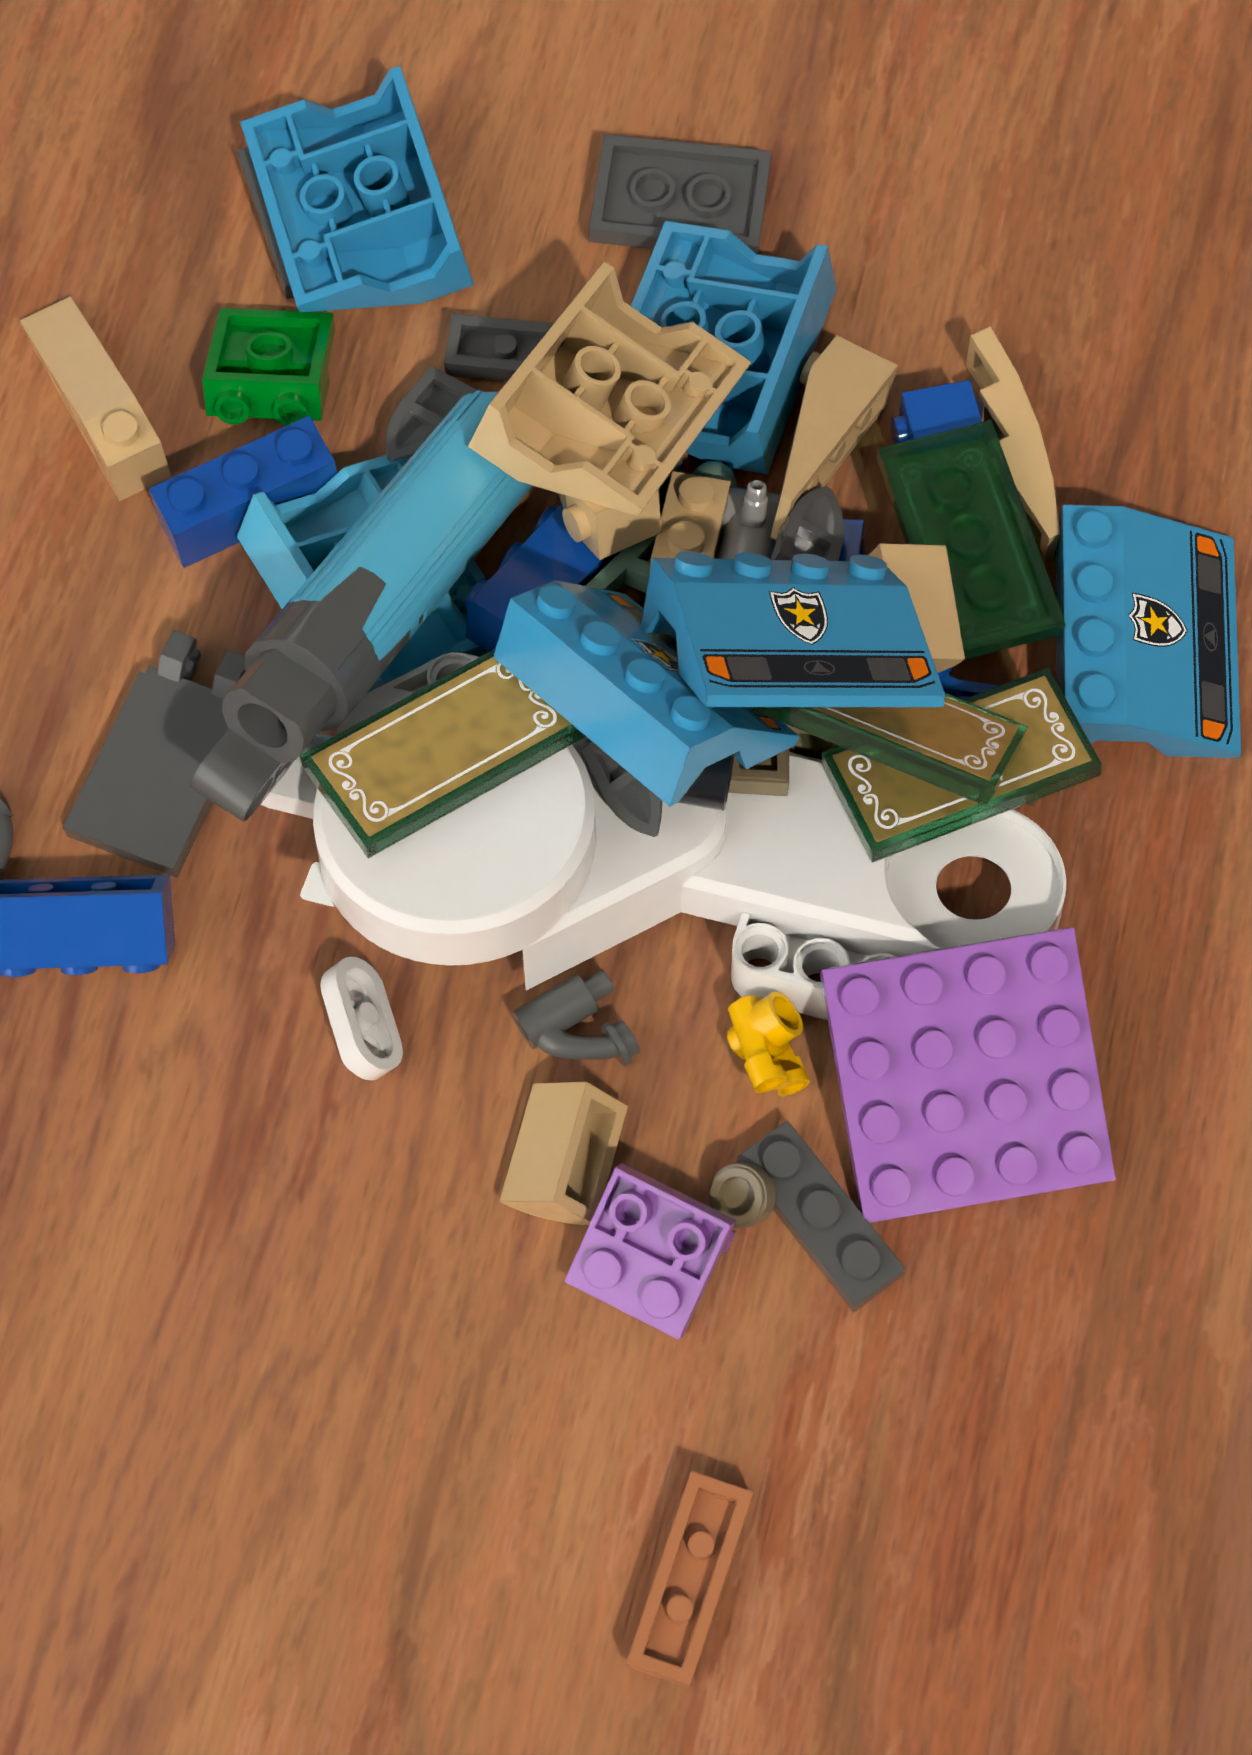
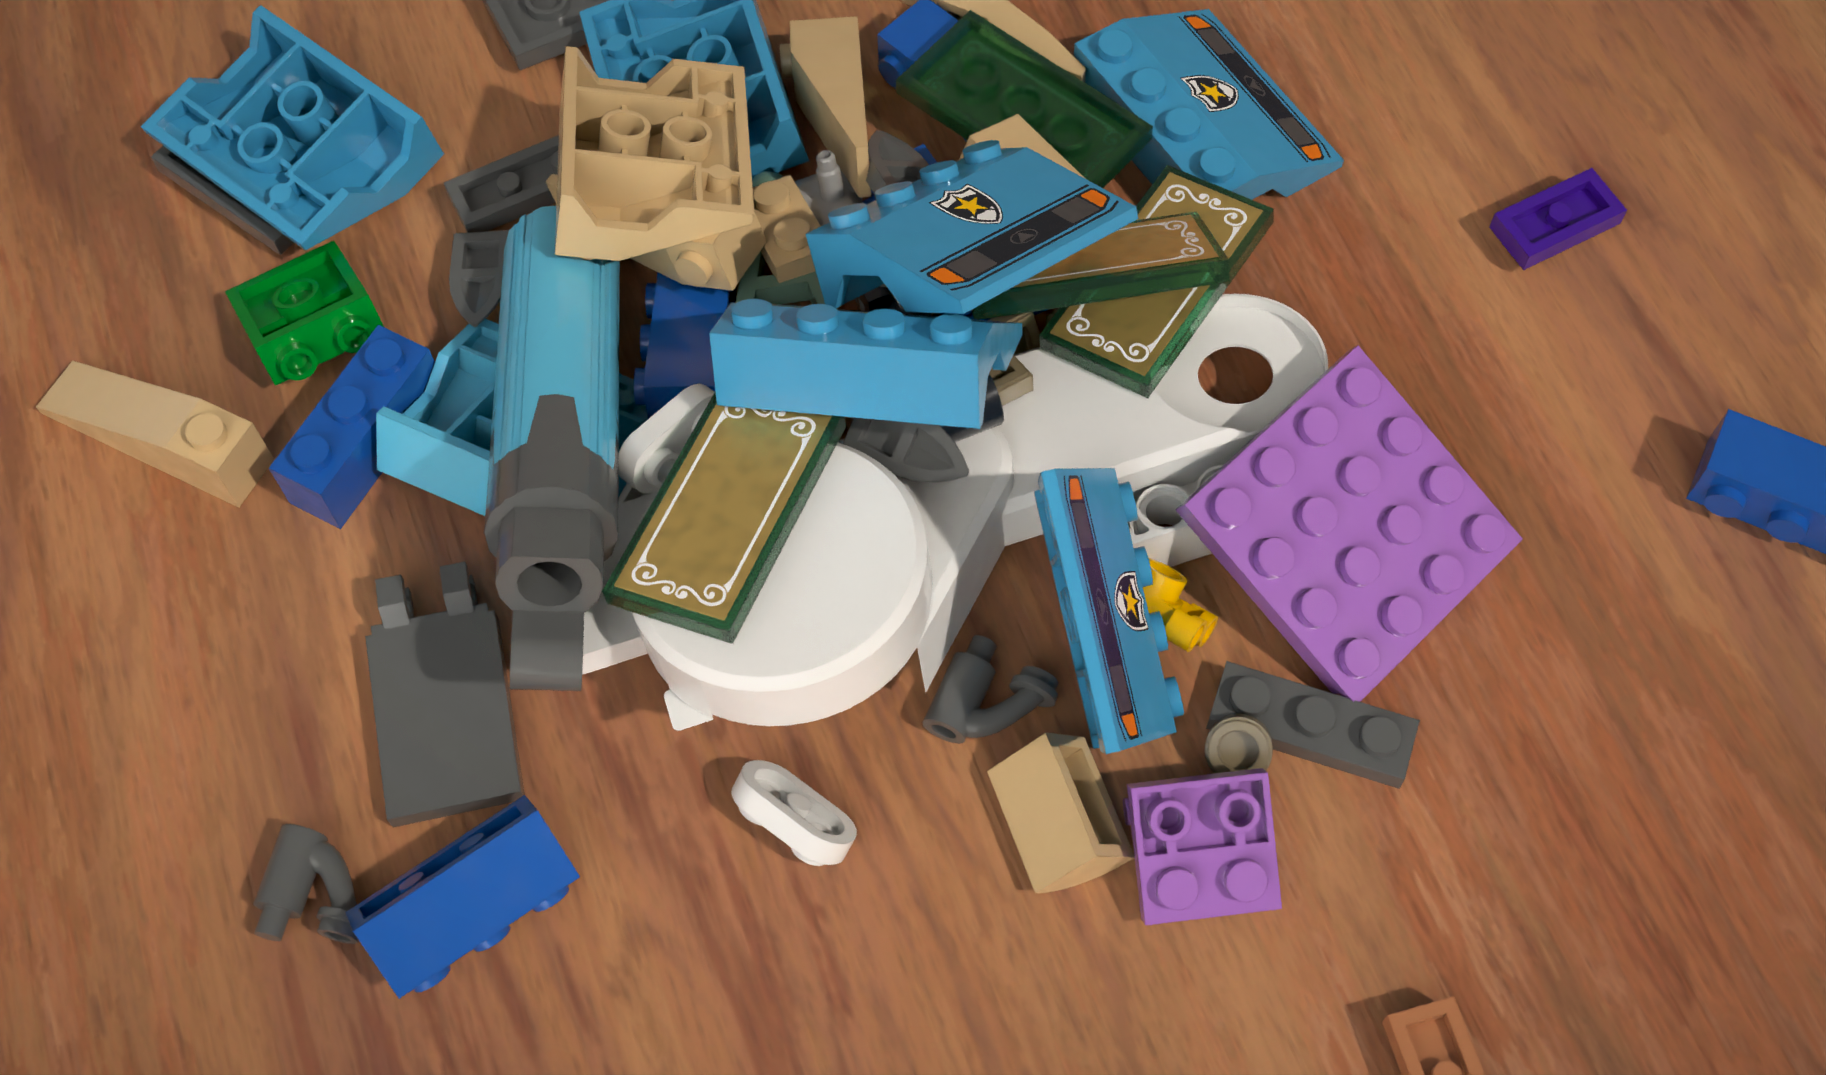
camera: 35 degrees left, 5 degrees down
(439, 655) = (656, 444): none -> white plate
(690, 1014) = (1105, 607): none -> dark azure piece

